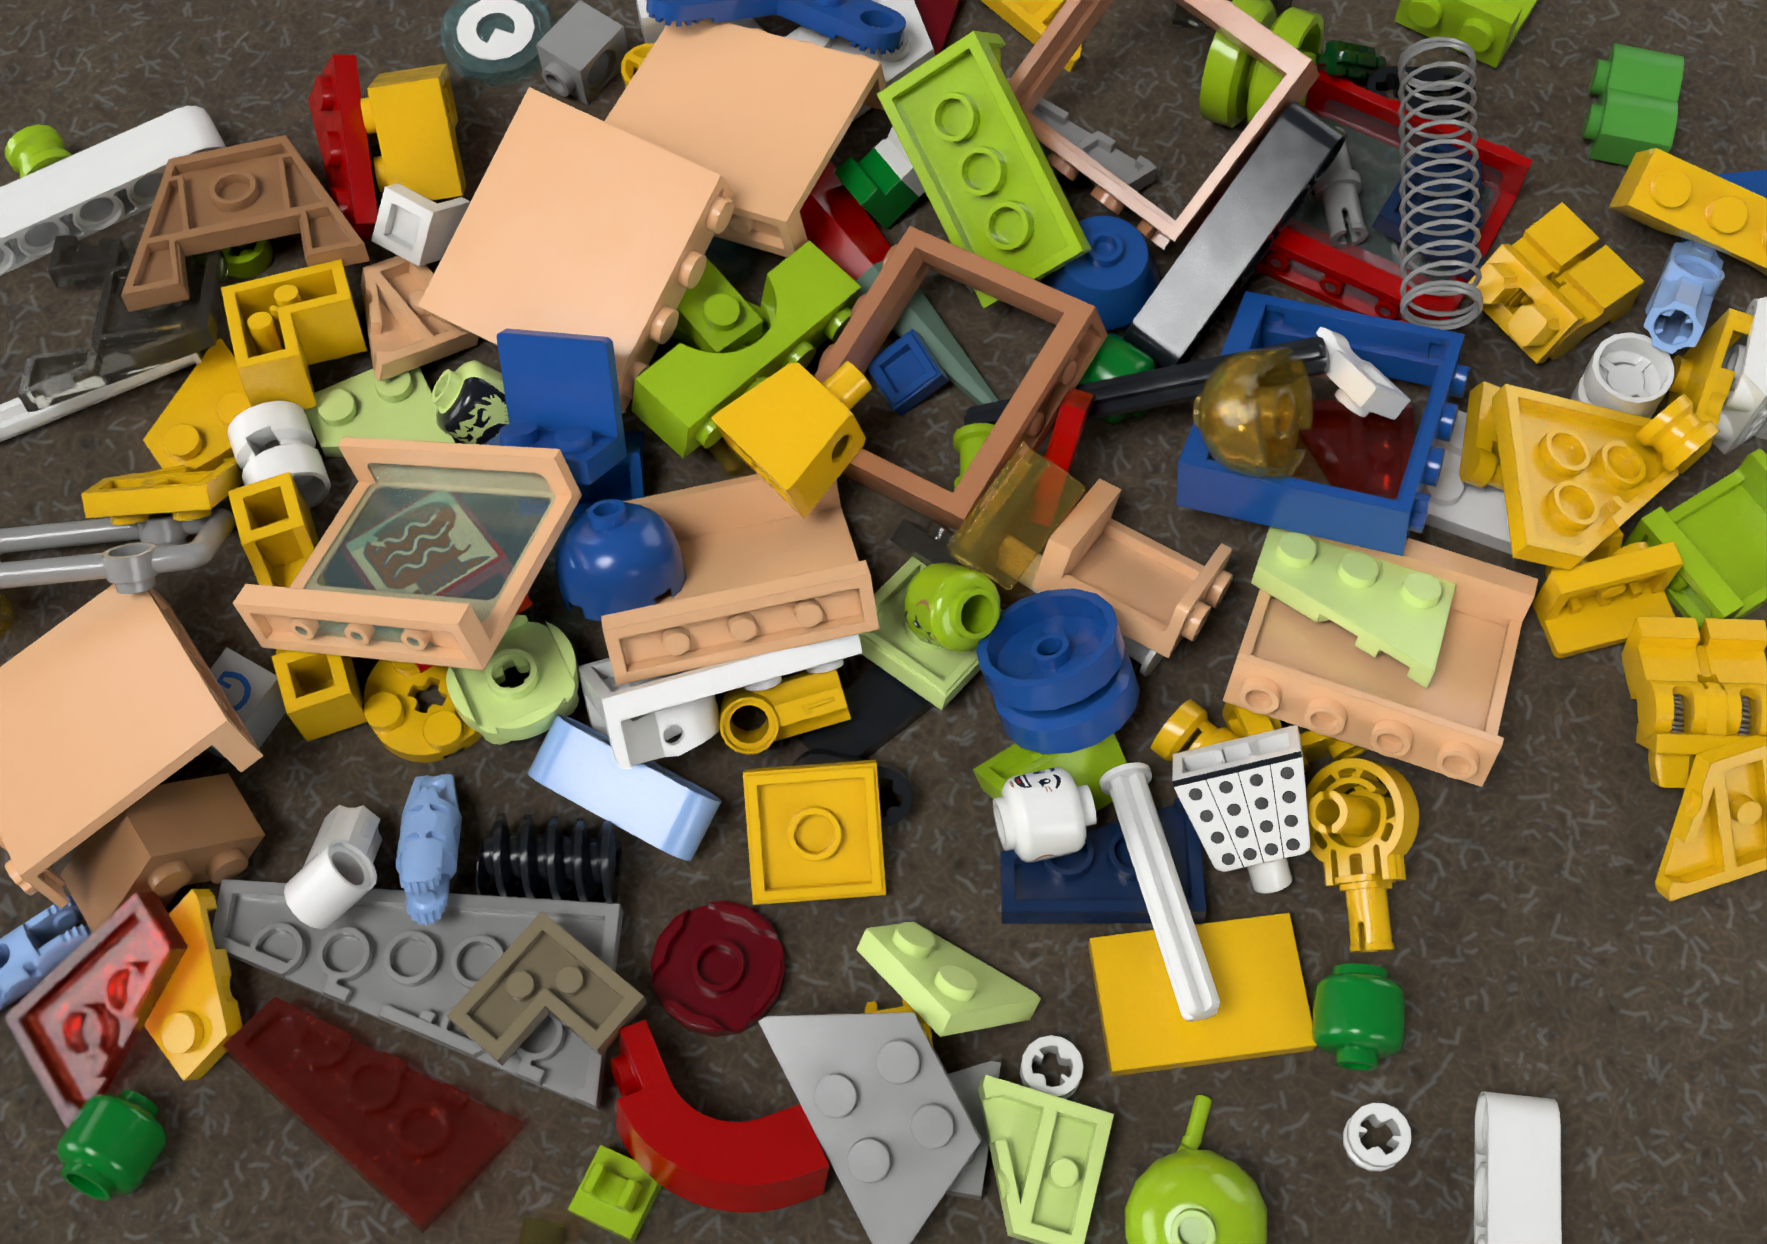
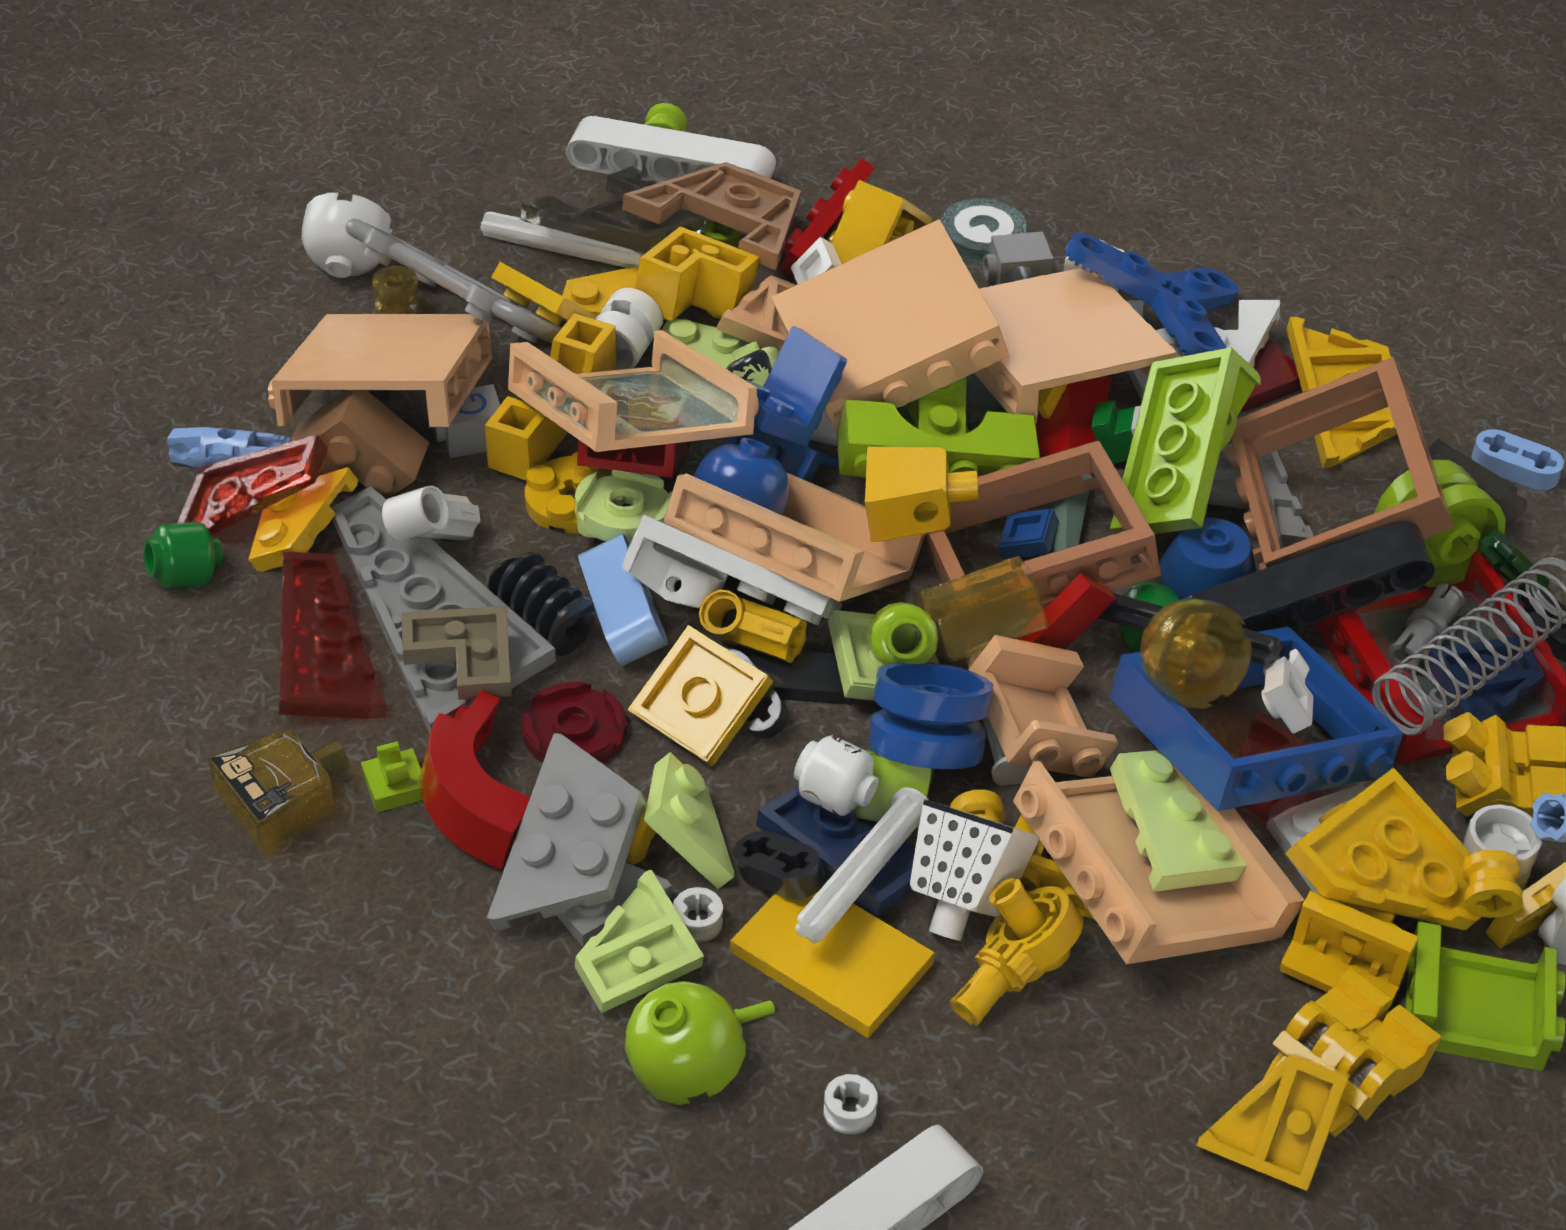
camera: 40 degrees right, 20 degrees down
(429, 846) = (488, 545): light blue hinge -> none
(1077, 967) = (779, 864): none -> black beam
(1358, 1016) = (910, 1026): green head -> none

